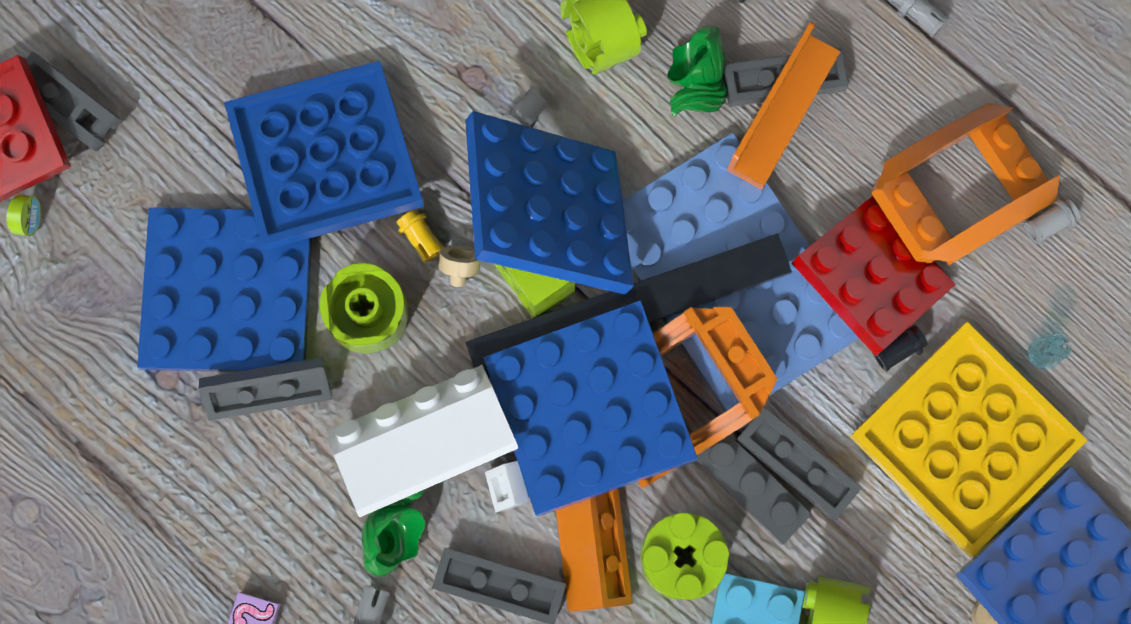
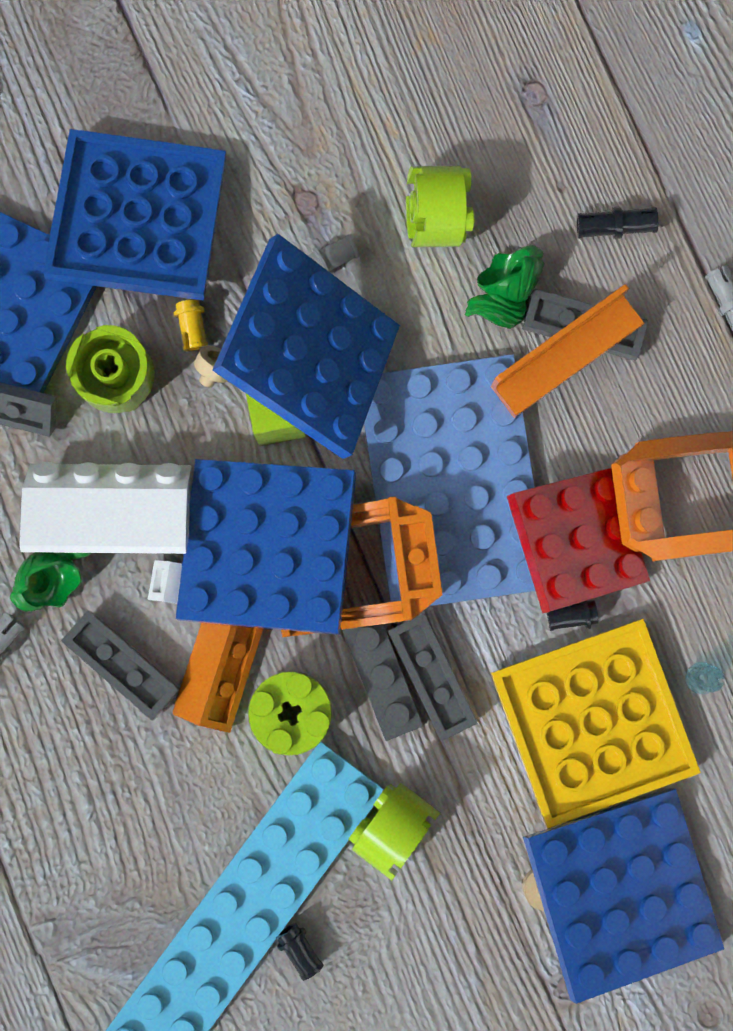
camera: 25 degrees right, 5 degrees up
(659, 295) = (374, 472): black tile -> none

